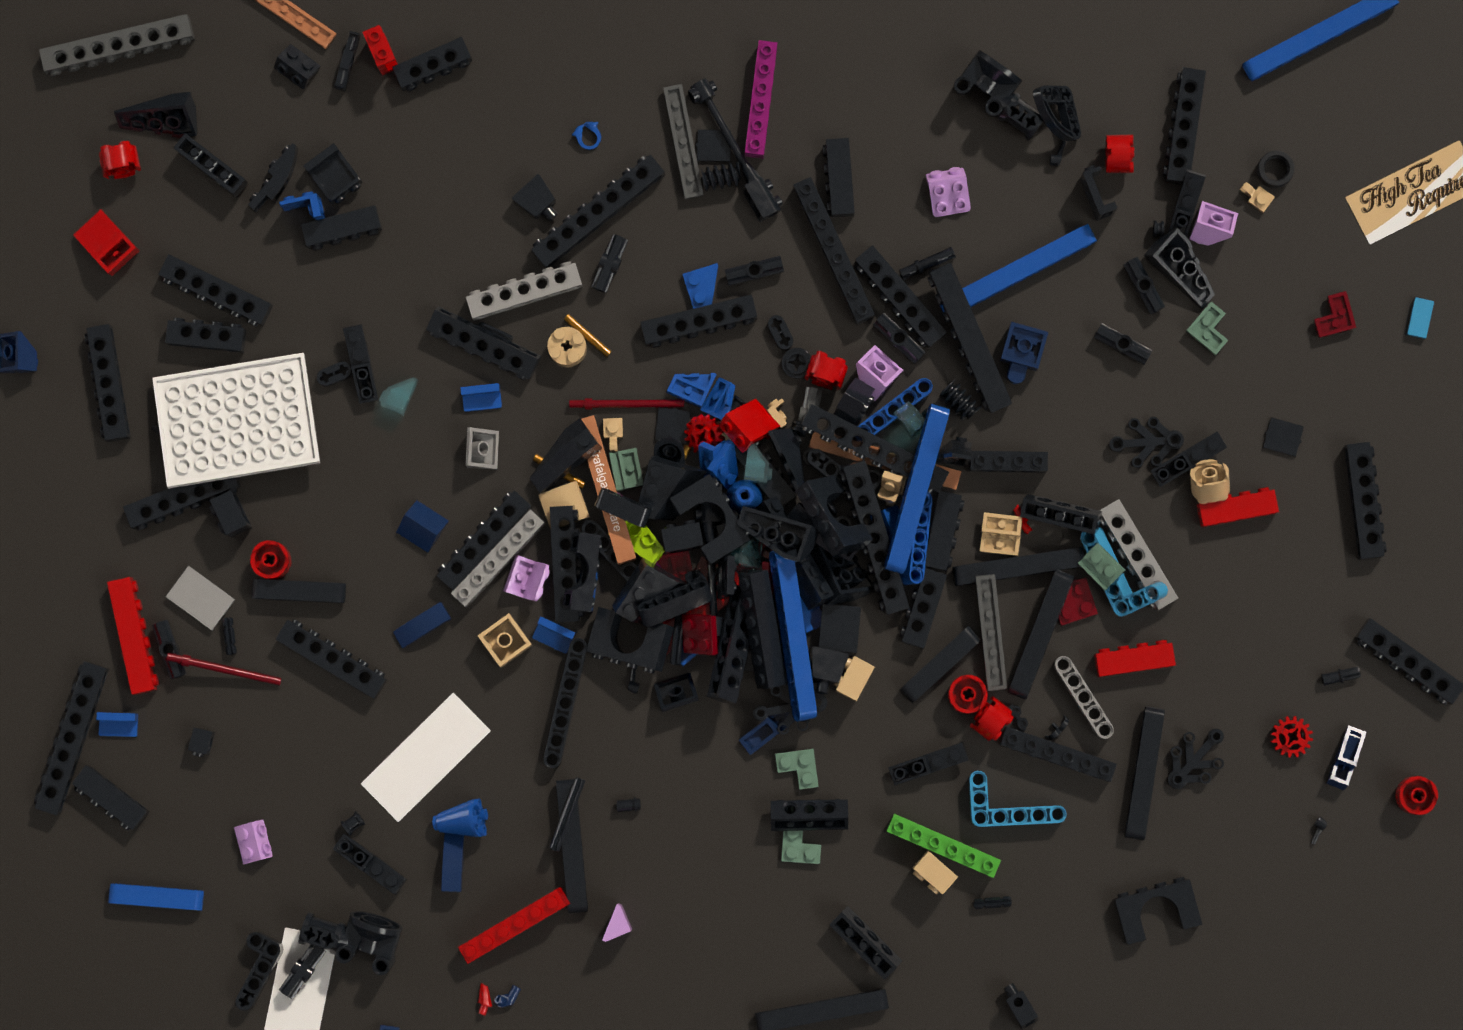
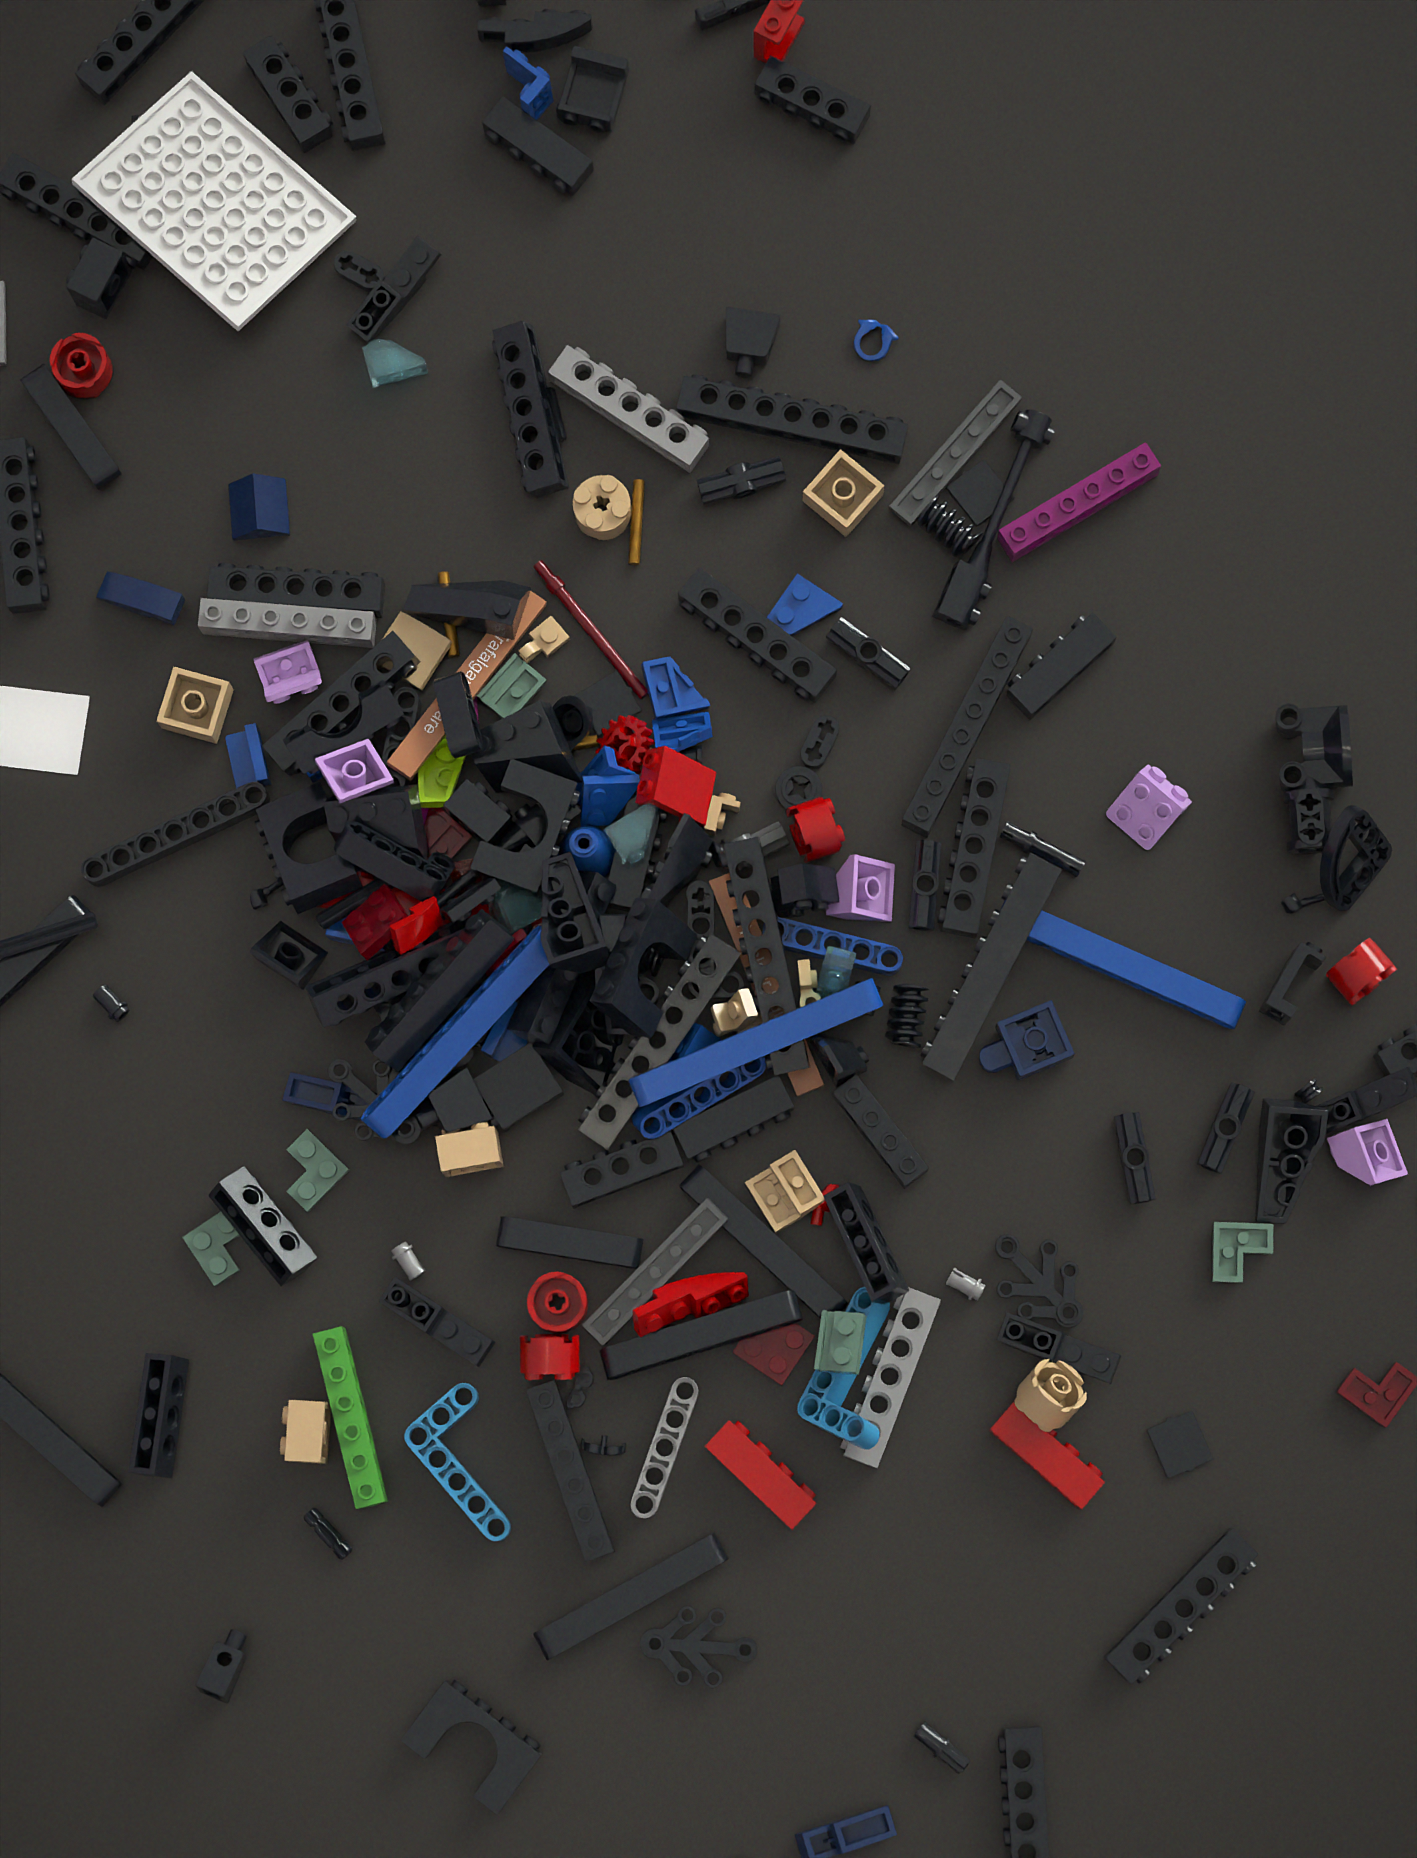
camera: 50 degrees right, 5 degrees down
(481, 397) = (465, 457): blue panel -> none
(482, 448) = (403, 503): light grey slope -> none
(611, 584) = (354, 770): none -> lavender slope
(660, 216) = (843, 493): none -> tan brick
(721, 616) = (417, 927): none -> red slope
(884, 754) = (408, 1260): none -> light grey pin
(902, 438) = (807, 981): none -> tan plate
(1018, 622) = (694, 1295): none -> red slope
(1119, 480) = (966, 1284): none -> light grey pin
(1284, 732) = (819, 1758): red gear -> none

